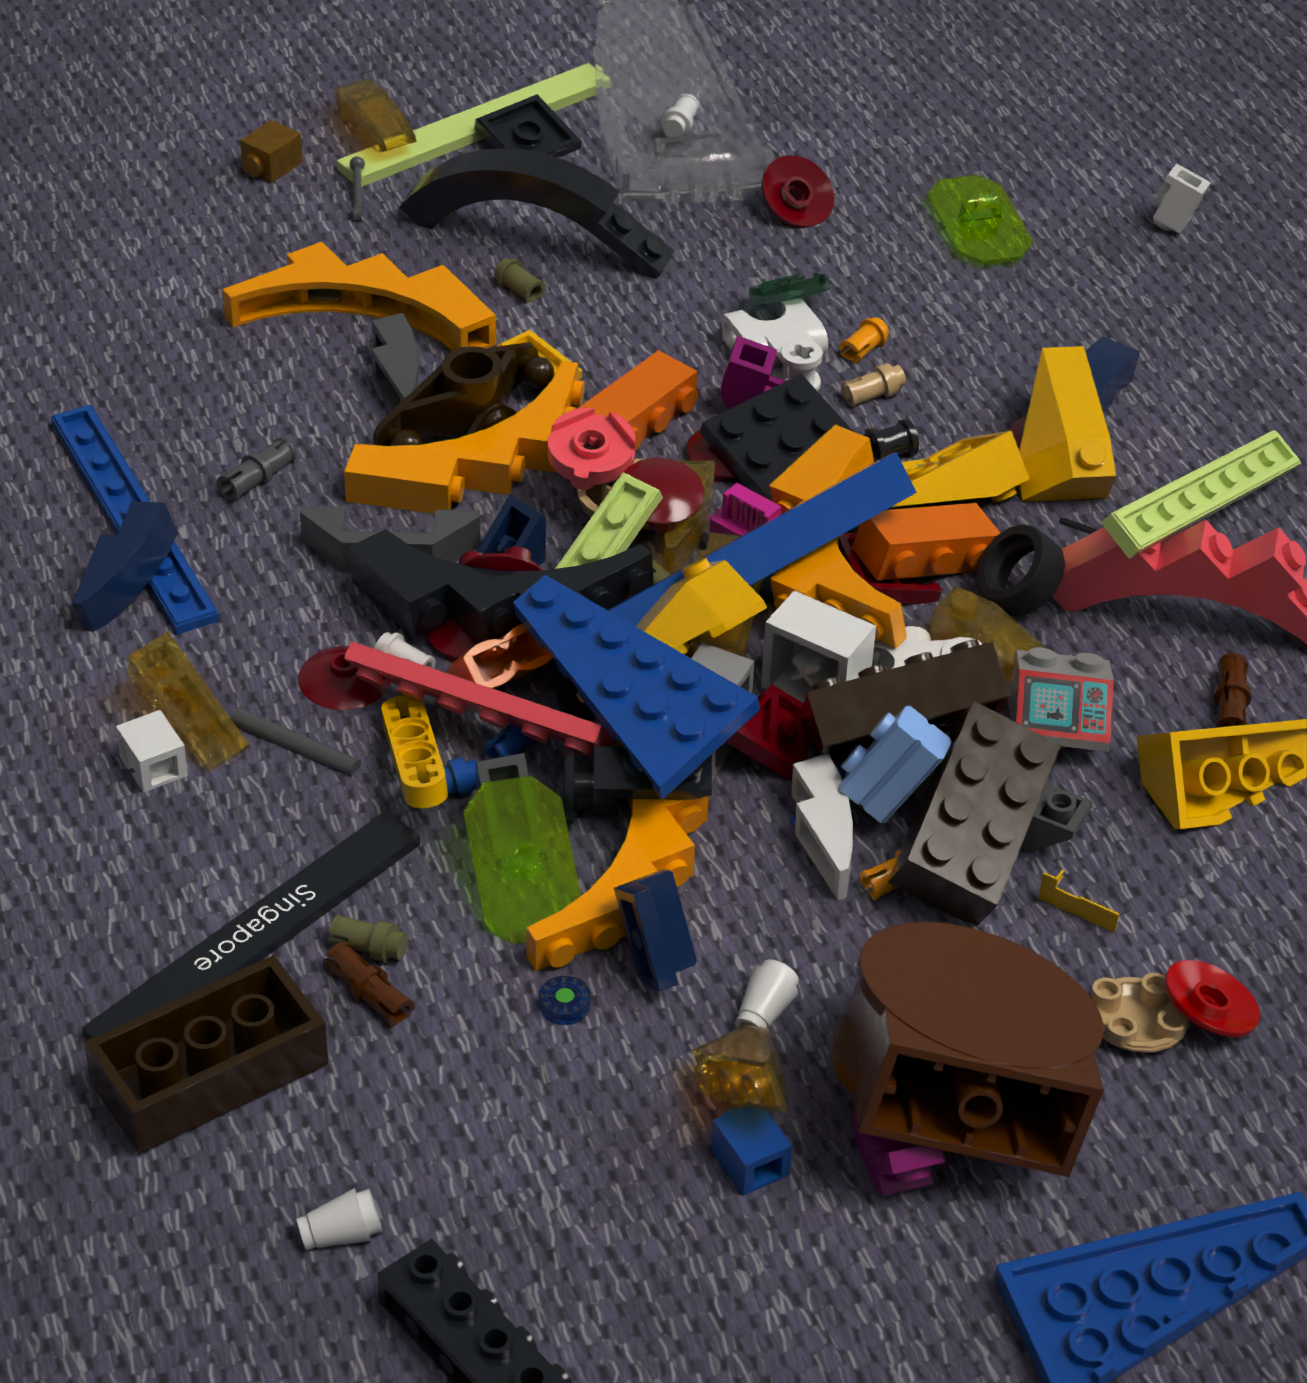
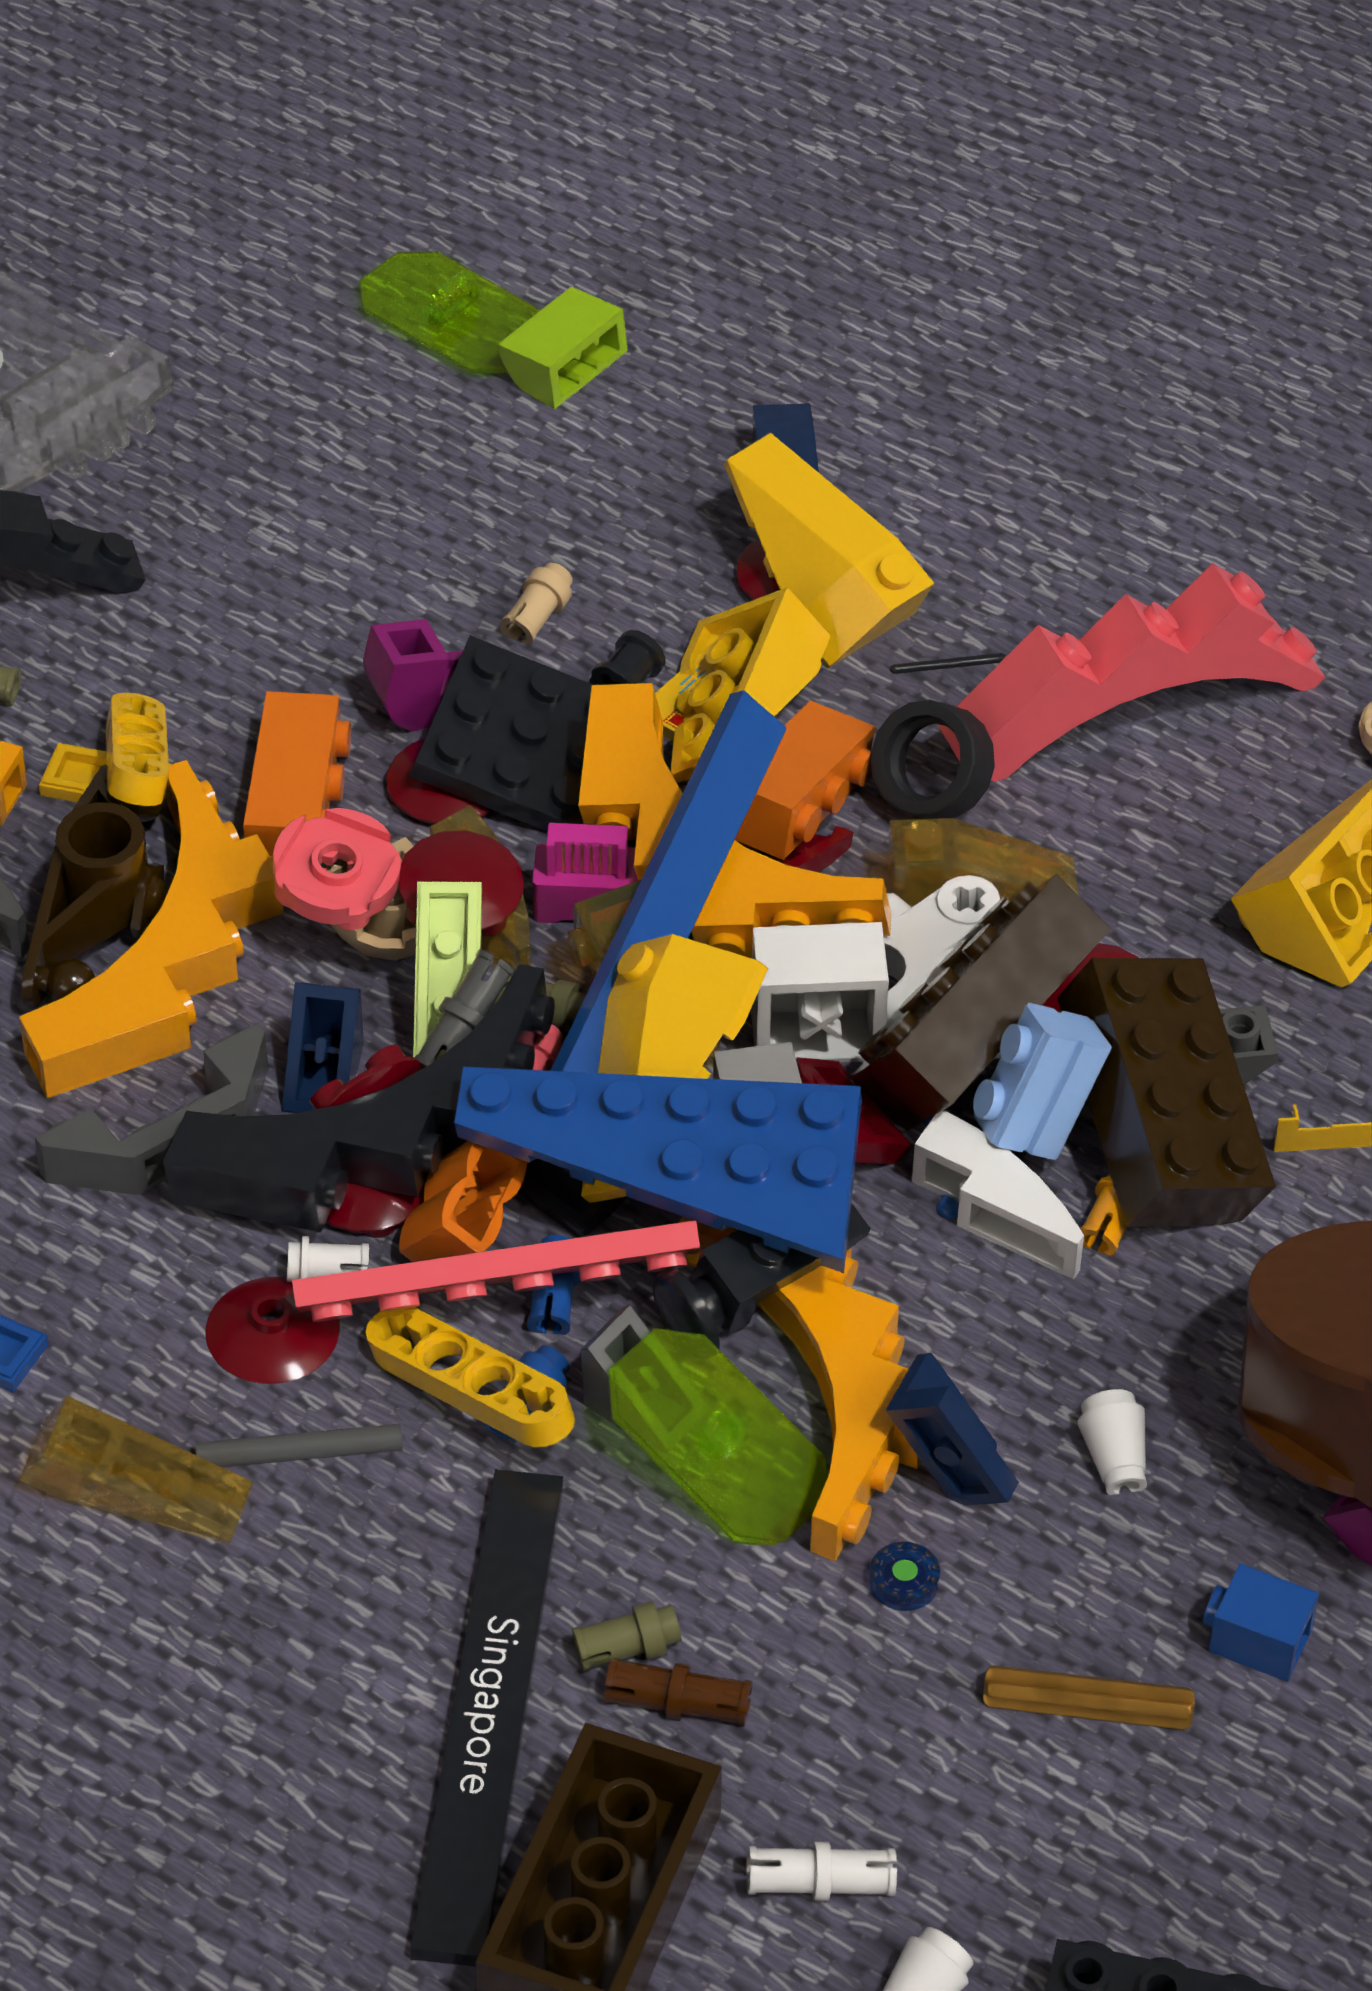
camera: 35 degrees left, 5 degrees up
(152, 750) = (152, 1558): white brick -> none
(348, 1126) = (821, 1871): none -> white pin
(553, 342) = (136, 749): none -> yellow beam
(604, 546) = (467, 1006): none -> dark grey pin
(607, 1129) = (1089, 1697): none -> pearl gold axle
(742, 1069) = (1201, 1534): clear yellow slope -> none
(788, 288) = (331, 528): clear green tile -> none
(796, 336) = (389, 588): white piece -> none
(803, 181) = (215, 382): dark red dish -> none
(870, 333) = (471, 537): light orange pin -> none
(1024, 261) = (564, 346): none -> lime brick
(1063, 697) = (1132, 887): slope -> none
(1179, 198) = (675, 174): white brick -> none
(1200, 494) = (1061, 560): yellowish green tile -> none
(1232, 692) = (1247, 766): reddish brown pin -> none

